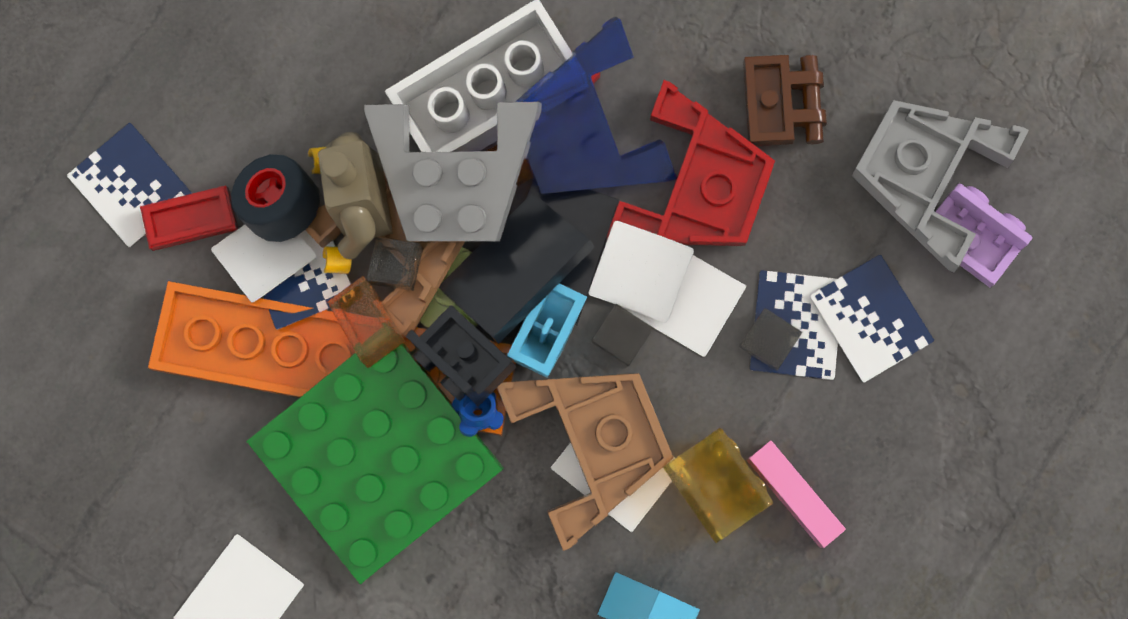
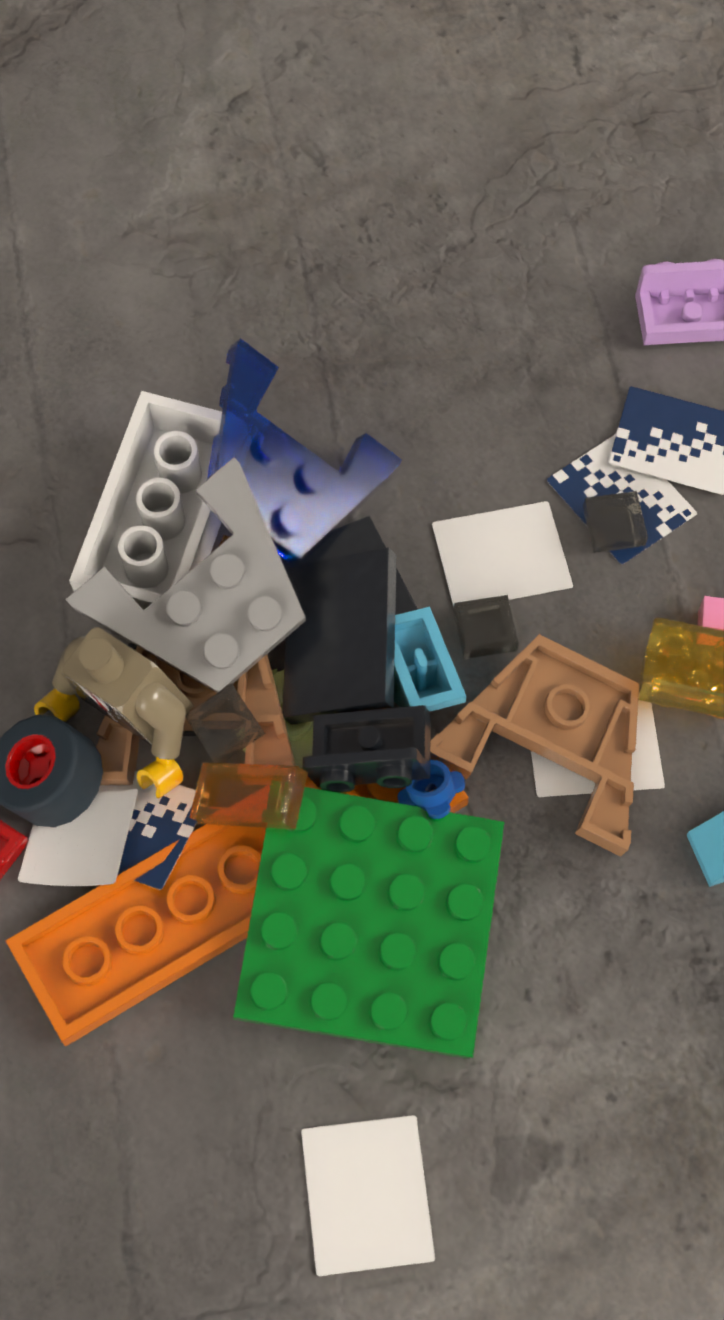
camera: 50 degrees left, 15 degrees down
(641, 271) = (450, 556): white sticker -> none
(716, 185) = (444, 443): red wing -> none
(770, 100) = (418, 338): reddish brown plate -> none
(913, 163) = (588, 294): light grey wing -> none

